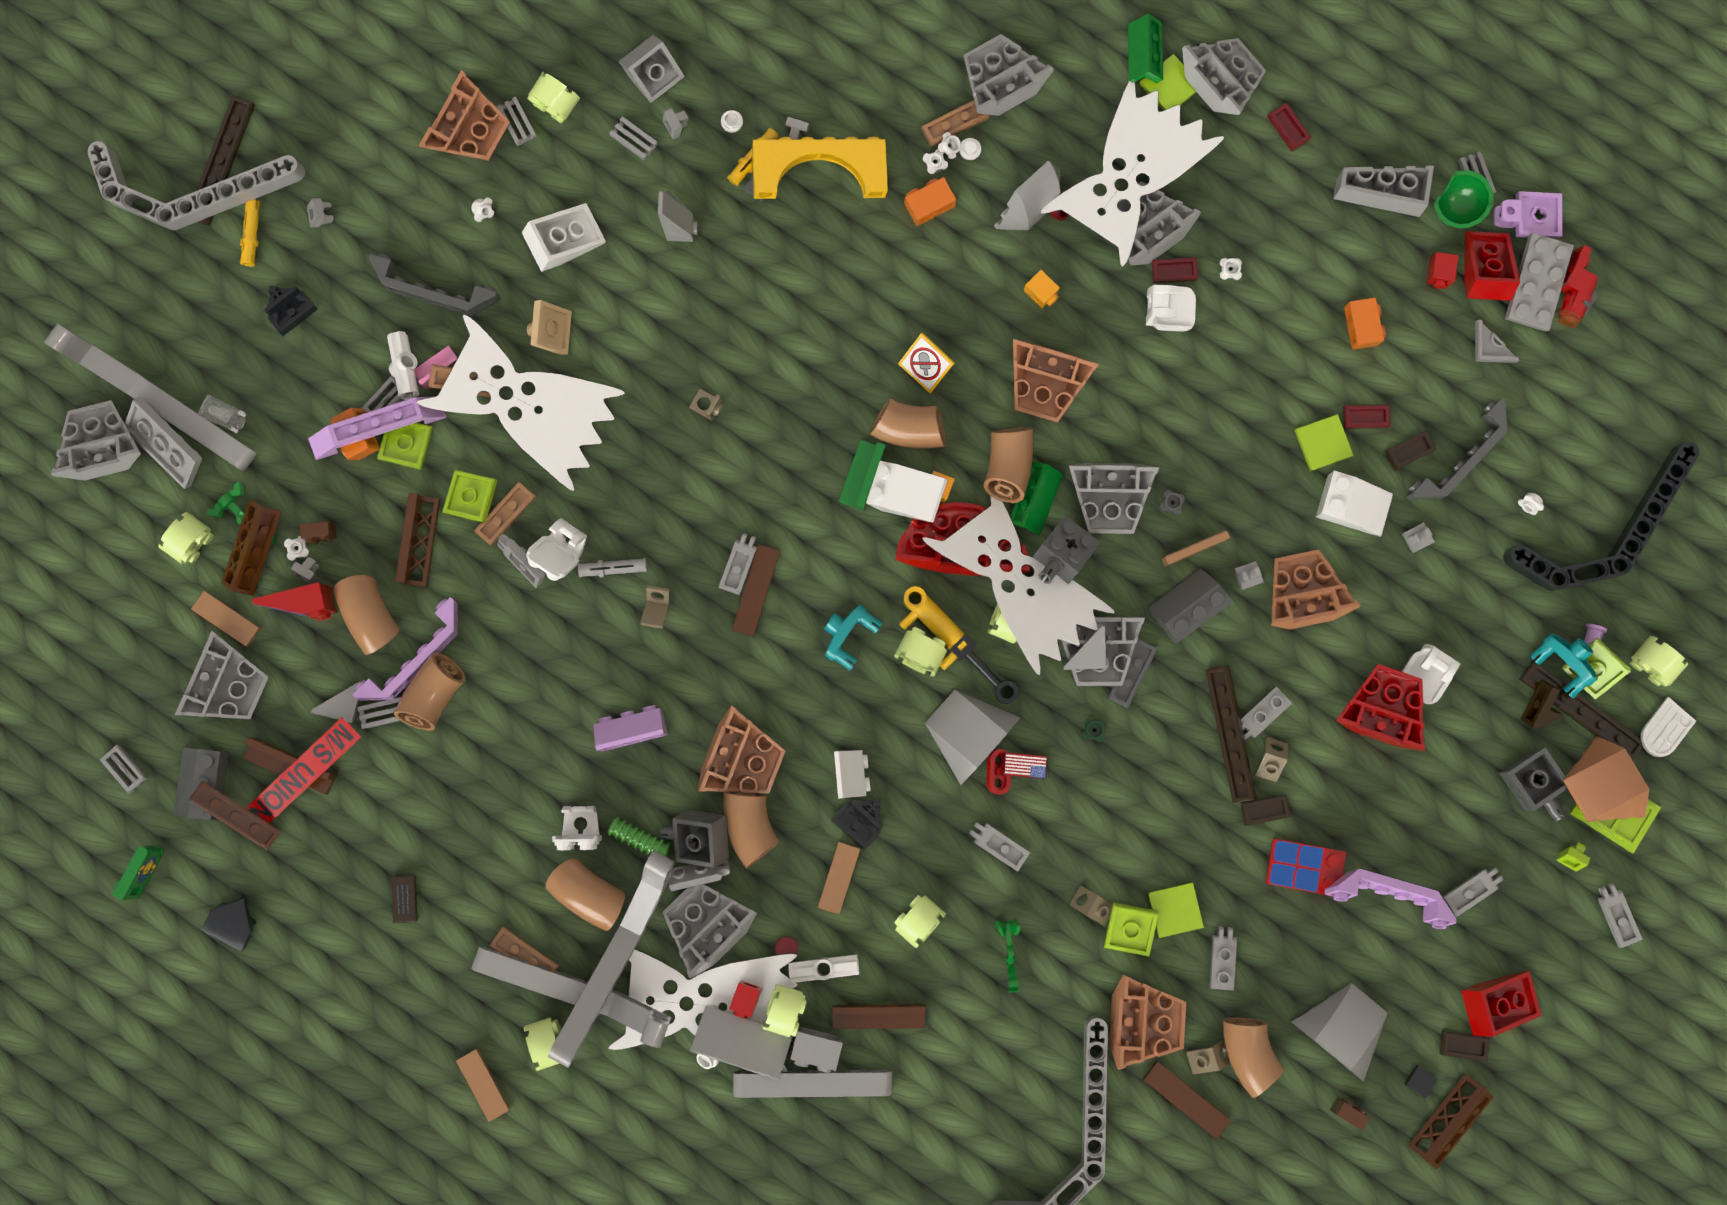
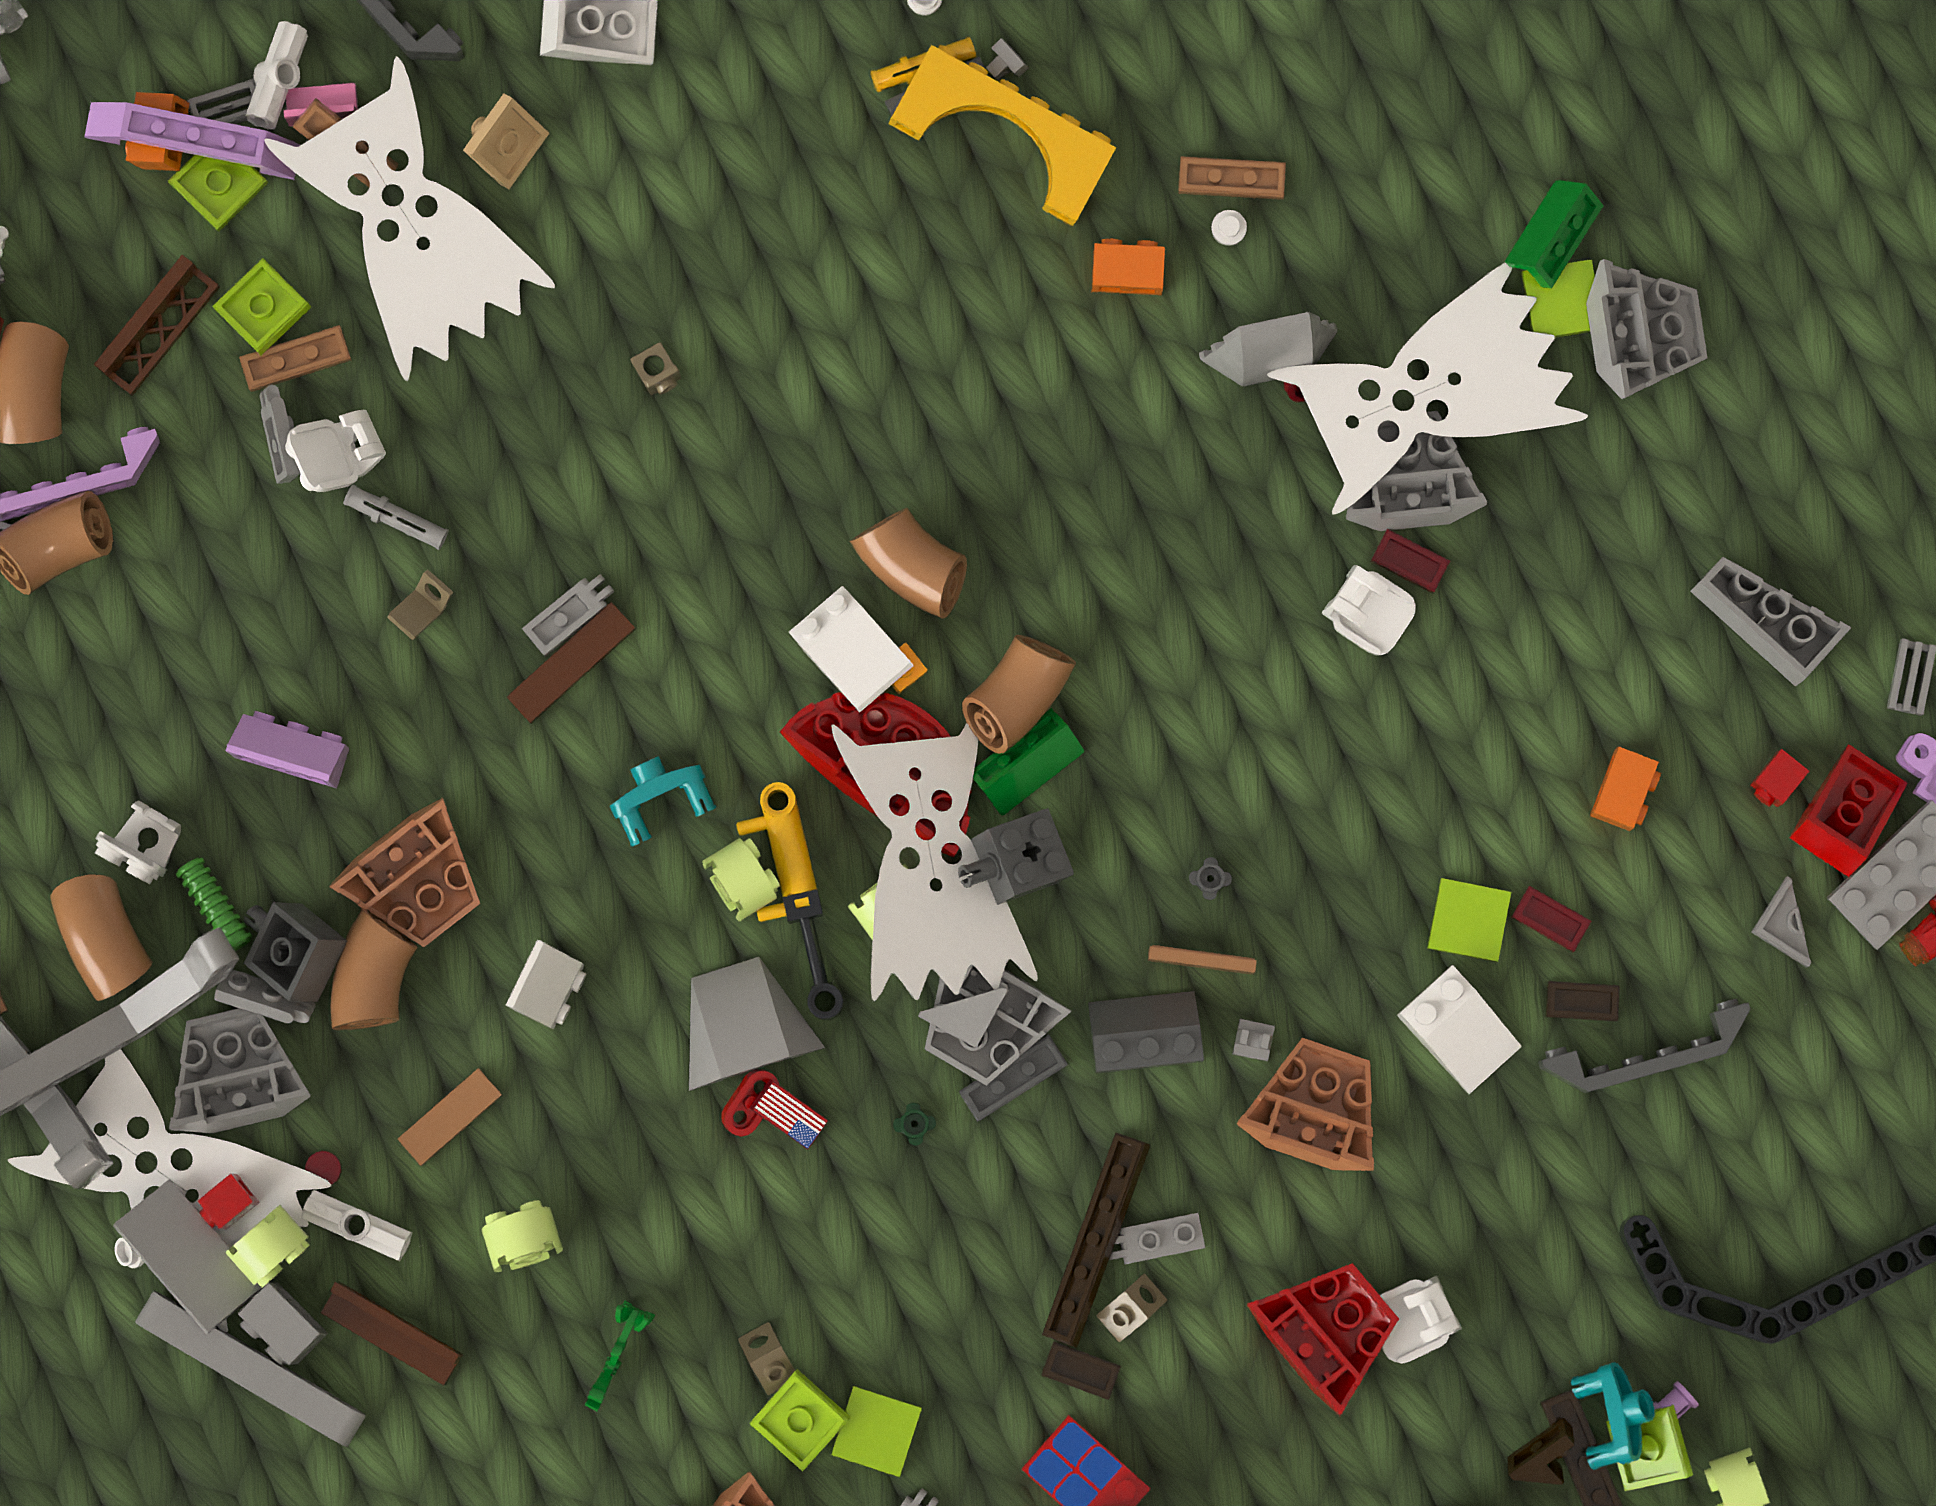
camera: 30 degrees right, 0 degrees up
(317, 532) = (32, 236): reddish brown piece -> none
(676, 218) = (763, 88): light grey wedge -> none
(860, 821) = (524, 1057): black slope -> none
(862, 474) = (809, 589): green panel -> none
(926, 363) = (987, 489): piece -> none
(932, 167) = (1173, 226): white plate -> none
(954, 143) = (1211, 209): white plate -> none
(1000, 846) = (691, 1203): light grey hinge -> none
(1003, 75) = (1333, 152): light grey wedge -> none
(1042, 289) = (1208, 481): light orange brick -> none
(1047, 379) = (1139, 607): nougat wedge -> none
(1112, 494) = (1131, 817): light grey wedge -> none
(1236, 266) = (1491, 614): white plate -> none
(1289, 127) = (1691, 455): dark red tile -> none
(1418, 537) = (1519, 1126): light grey tile -> none
(1465, 200) = (1864, 701): green cylinder -> none
(1531, 503) = (1703, 1172): white plate -> none

